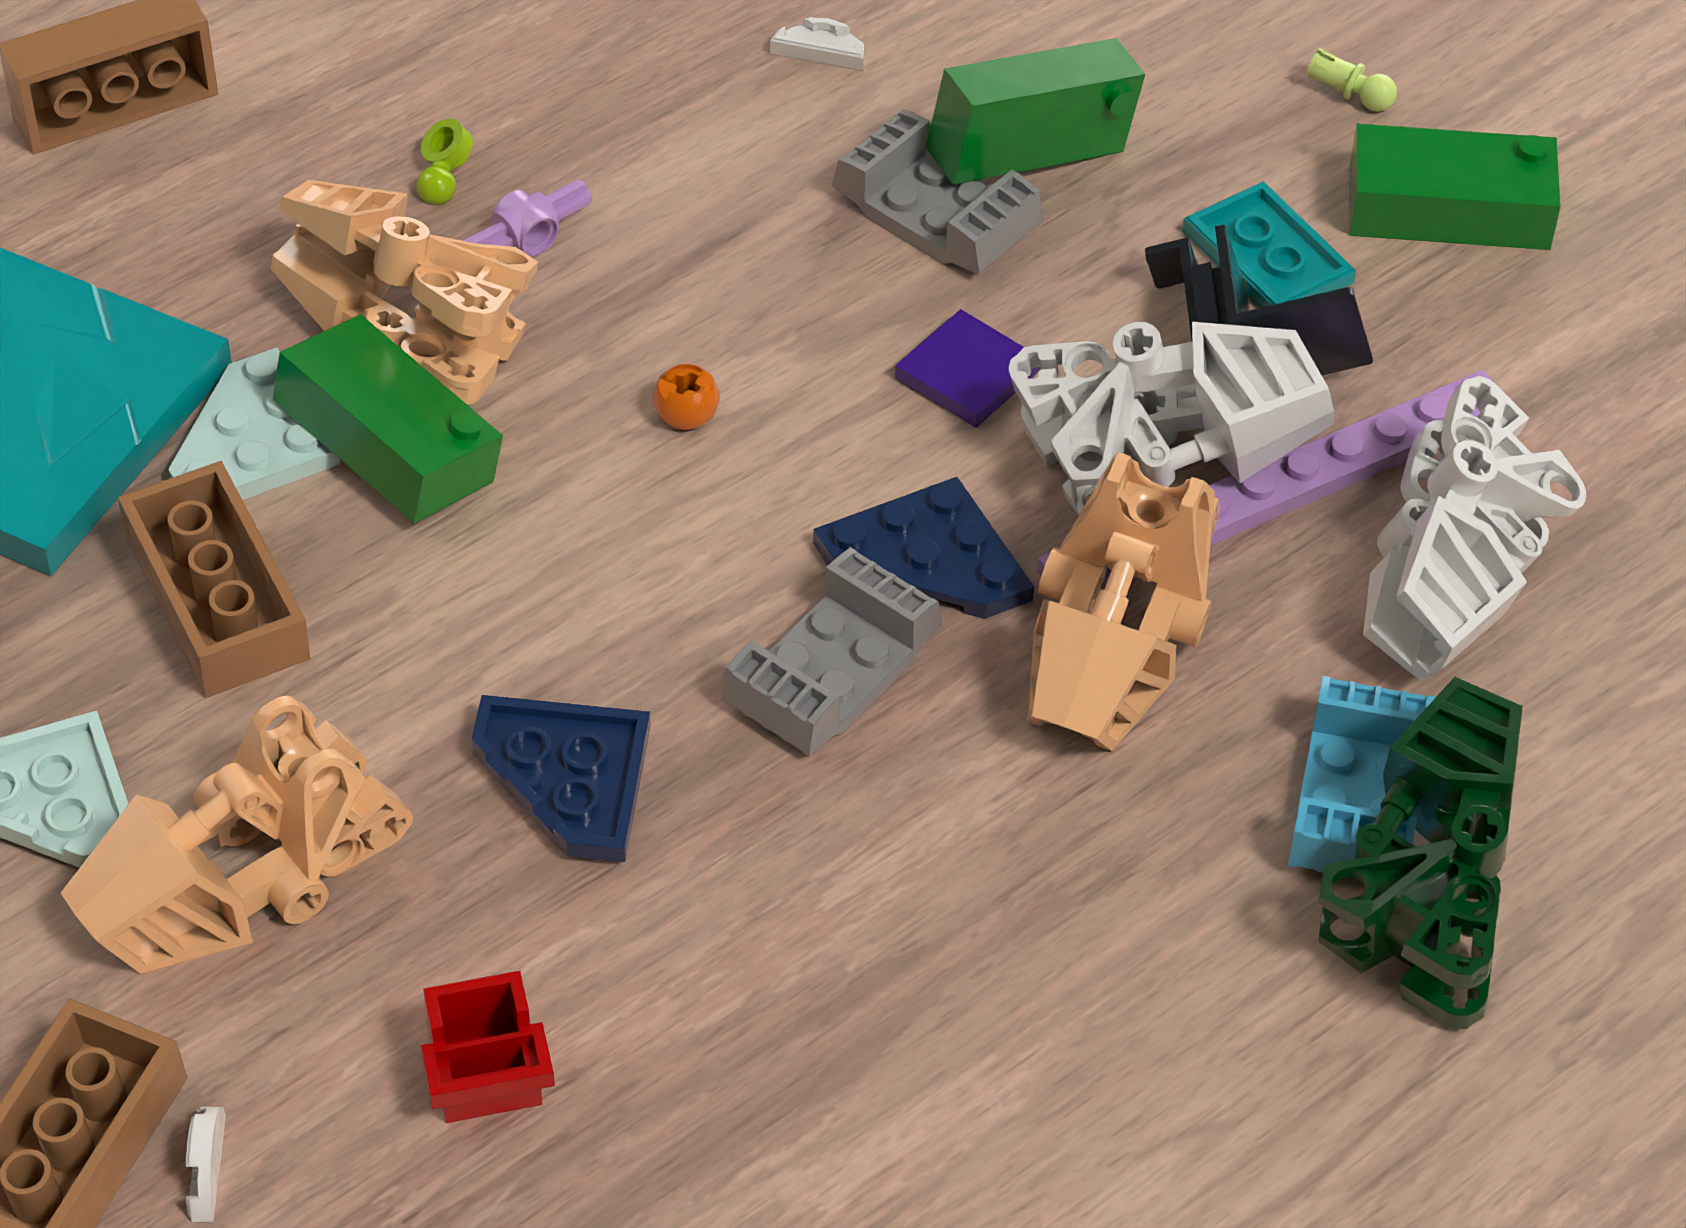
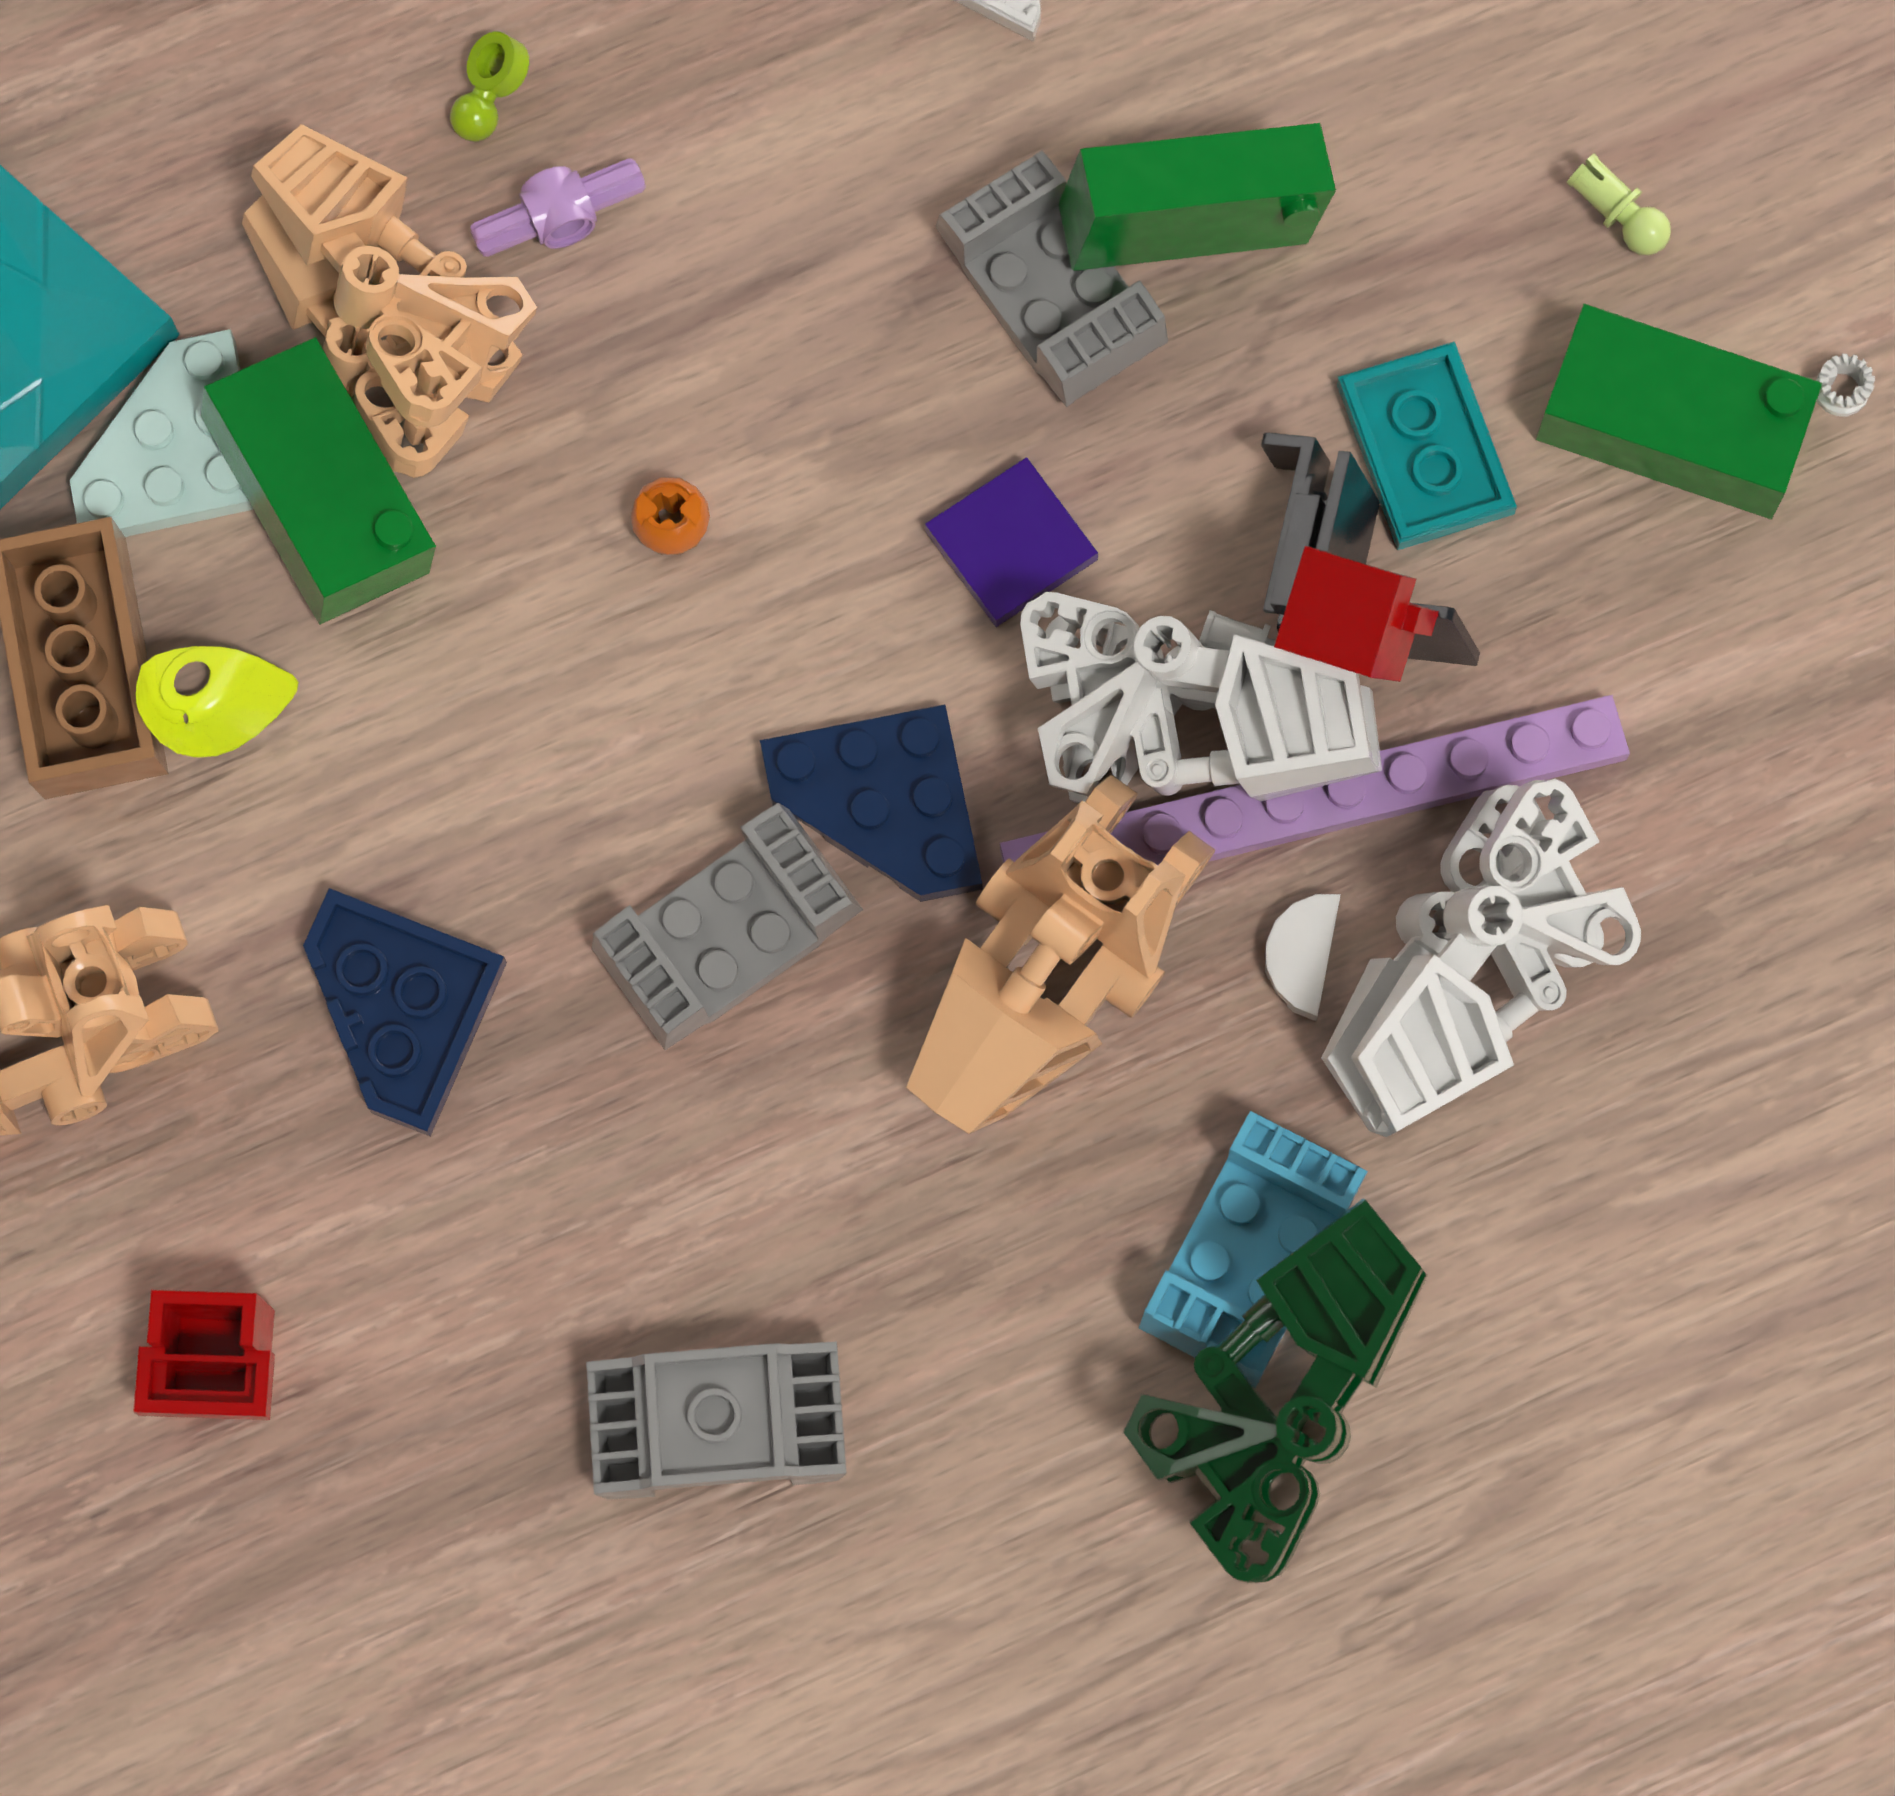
camera: 20 degrees right, 25 degrees up
(357, 586) = (229, 710): none -> neon yellow piece
(953, 996) = (715, 1418): none -> light grey plate
(1282, 286) = (1352, 616): none -> red plate
(1311, 584) = (1300, 952): none -> white tile
(1576, 149) = (1858, 371): none -> white bush

